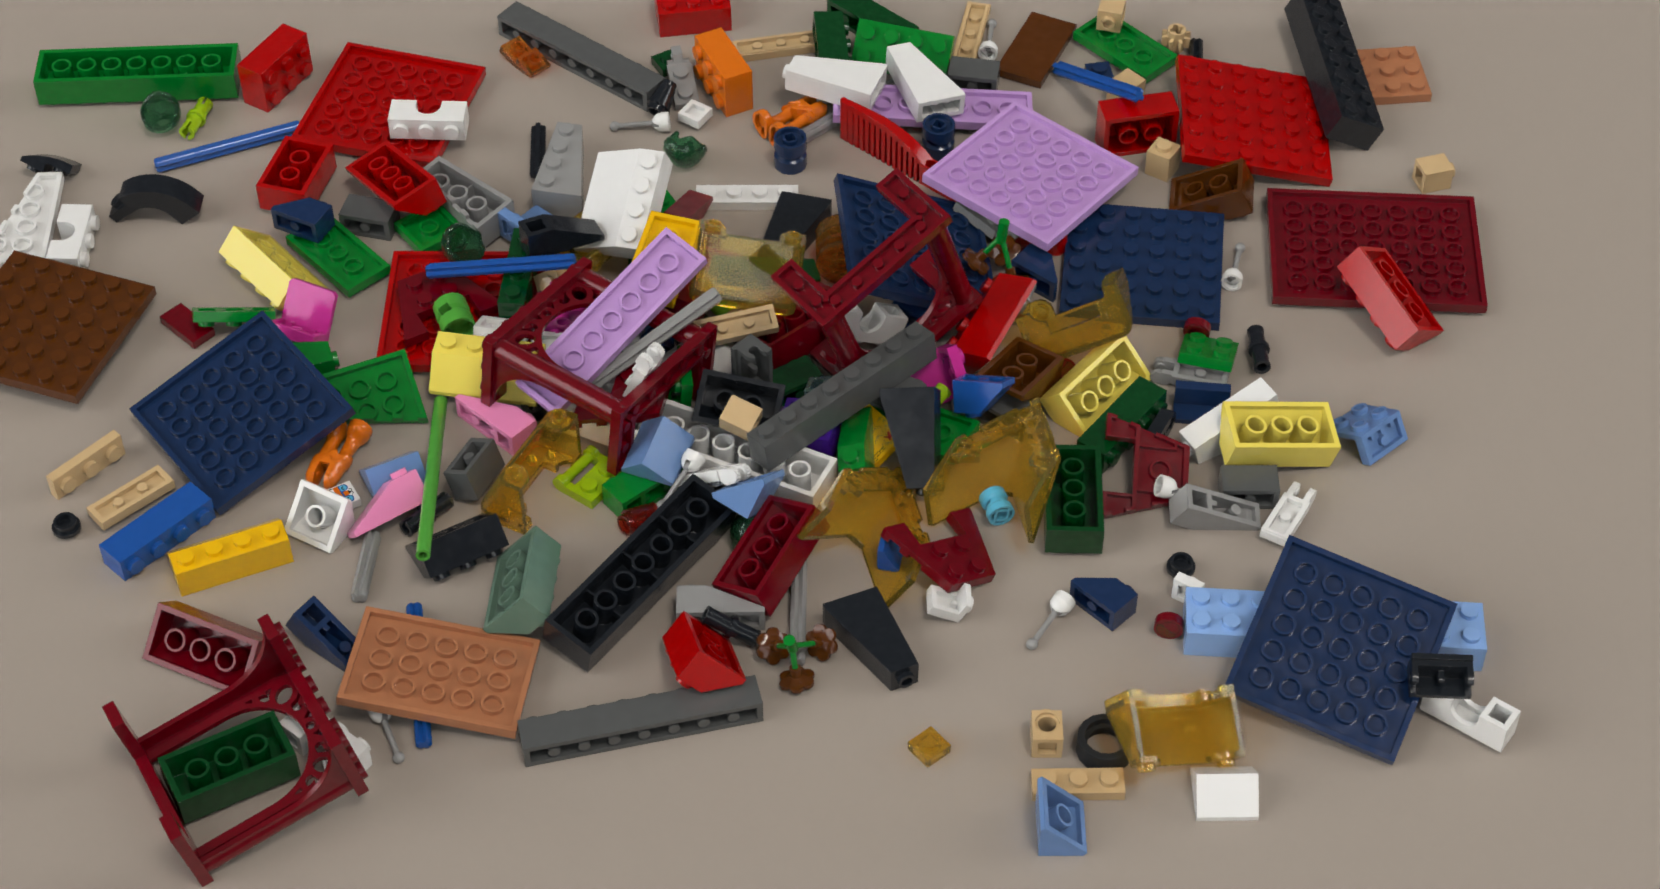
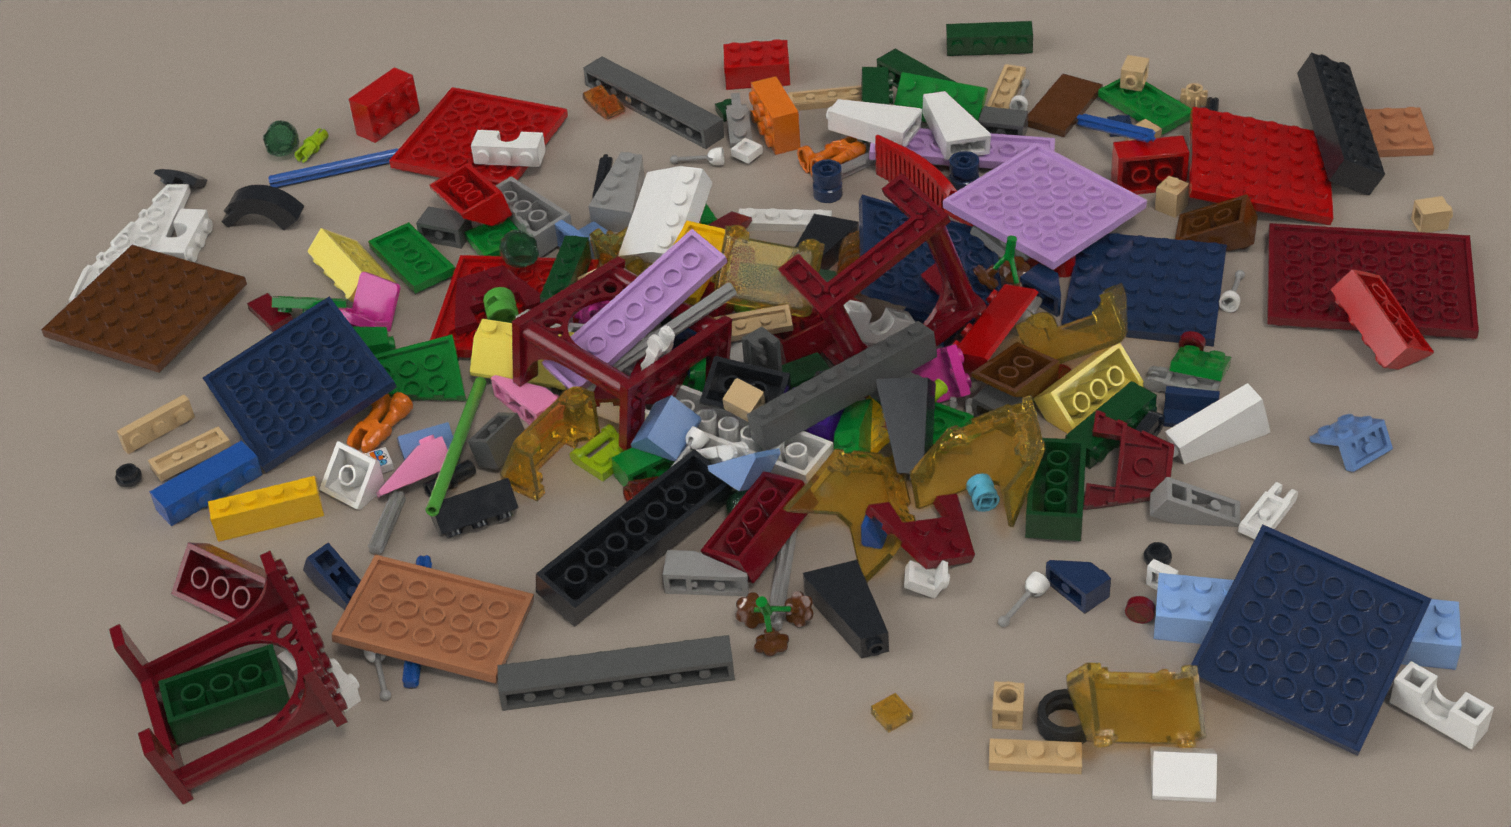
camera: 10 degrees right, 5 degrees down
(135, 72) = (257, 106): green brick -> none
(296, 172) = (386, 192): red brick -> none
(304, 218) = (385, 225): dark blue slope -> none
(500, 266) = (545, 265): blue axle -> none
(523, 584) = (525, 543): sand green slope -> none
(556, 234) = (597, 239): black slope -> none
(662, 98) = (718, 136): black cone -> none
(684, 151) = (731, 180): clear green hair -> none
(701, 656) = (680, 615): red slope -> none
(730, 626) = (712, 589): black pin -> none
(978, 393) = (973, 389): blue slope -> none
(1059, 821) = (1012, 790): medium blue slope -> none
(1165, 486) = (1147, 481): white hinge -> none
(1251, 483) = (1233, 481): dark grey brick -> none
(1258, 349) = (1250, 363): black pin -> none
(1278, 434) = (1262, 437): light yellow slope -> none
(1440, 675) = (1410, 667): black hinge -> none

